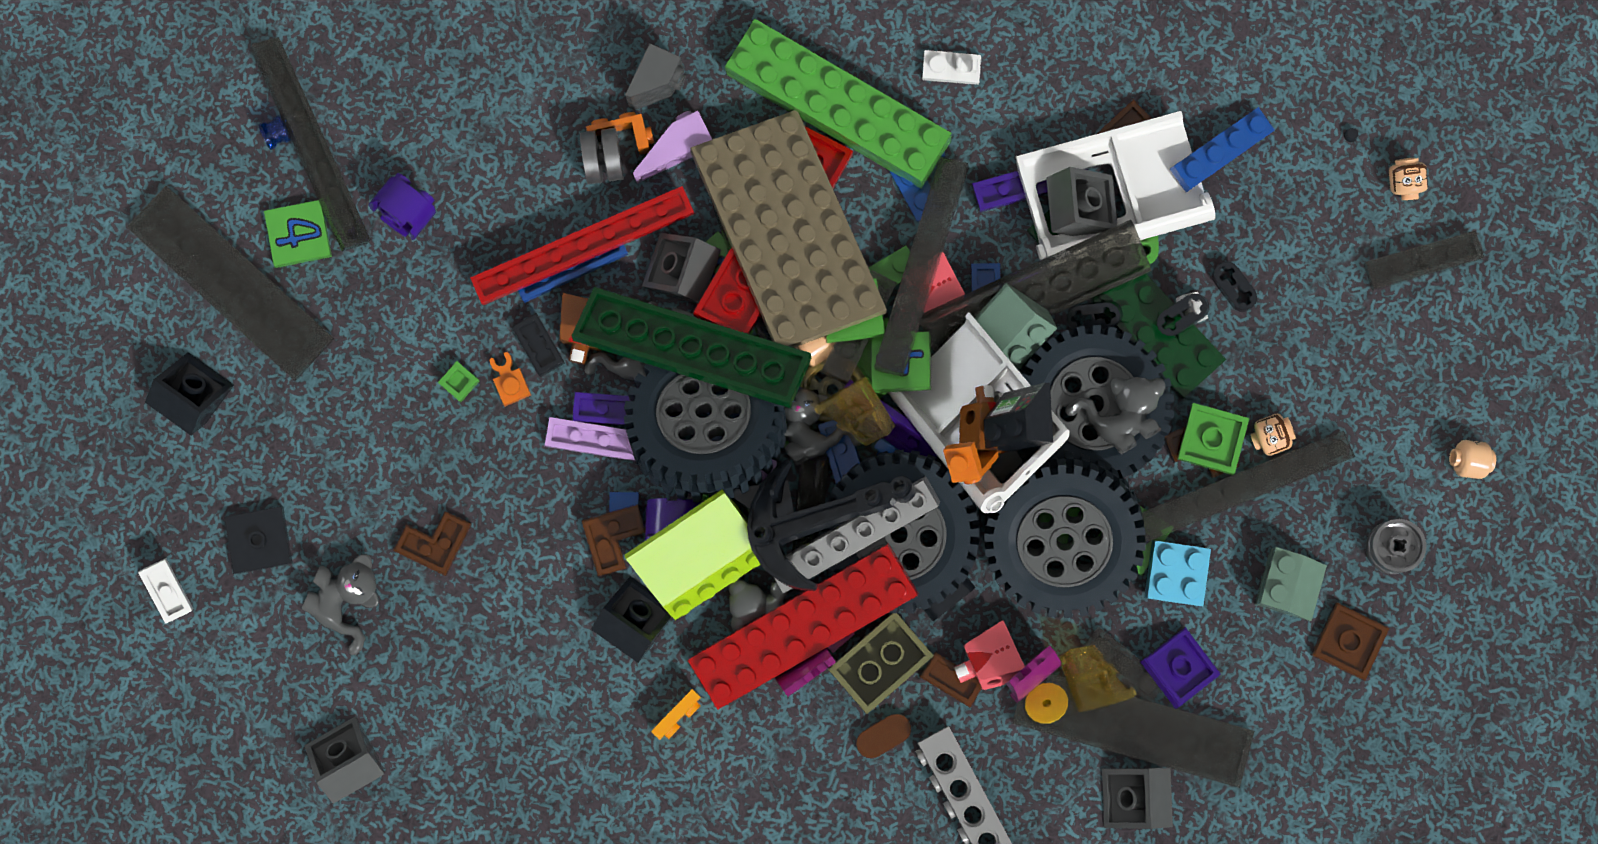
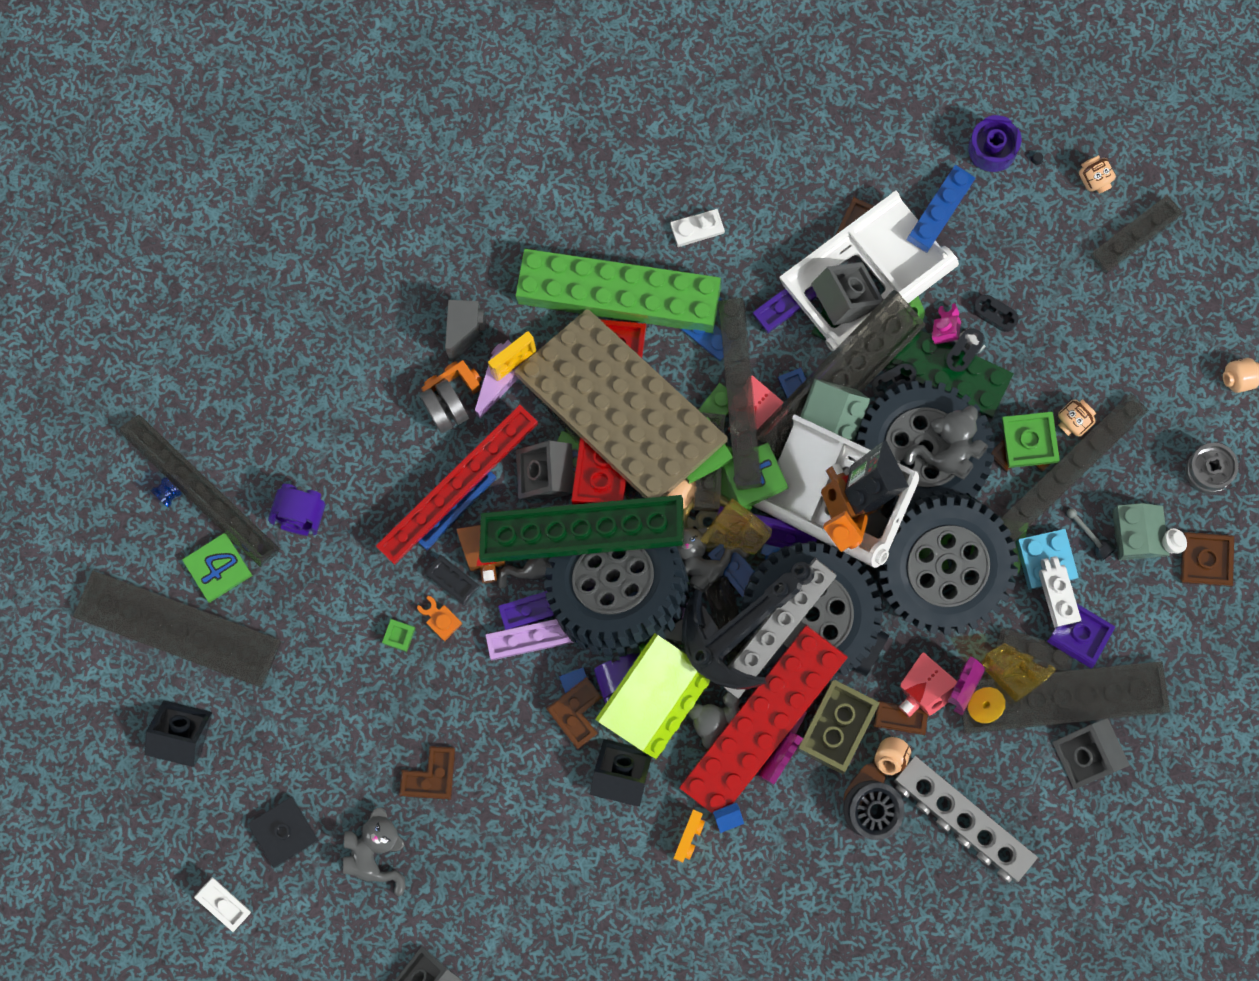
camera: 20 degrees left, 5 degrees down
(693, 131) = (512, 356): none -> yellow tile
(726, 711) = (728, 817): none -> blue tile
(880, 790) = (852, 805): none -> black wheel
(925, 716) = (892, 756): none -> light nougat head
(1173, 615) = (1058, 592): none -> white hinge
(1176, 281) = (948, 326): none -> dark pink plate
(1242, 584) = (1103, 547): none -> hinge
(1322, 608) = (1174, 541): none -> white plate
(1325, 104) = (1007, 140): none -> dark purple brick

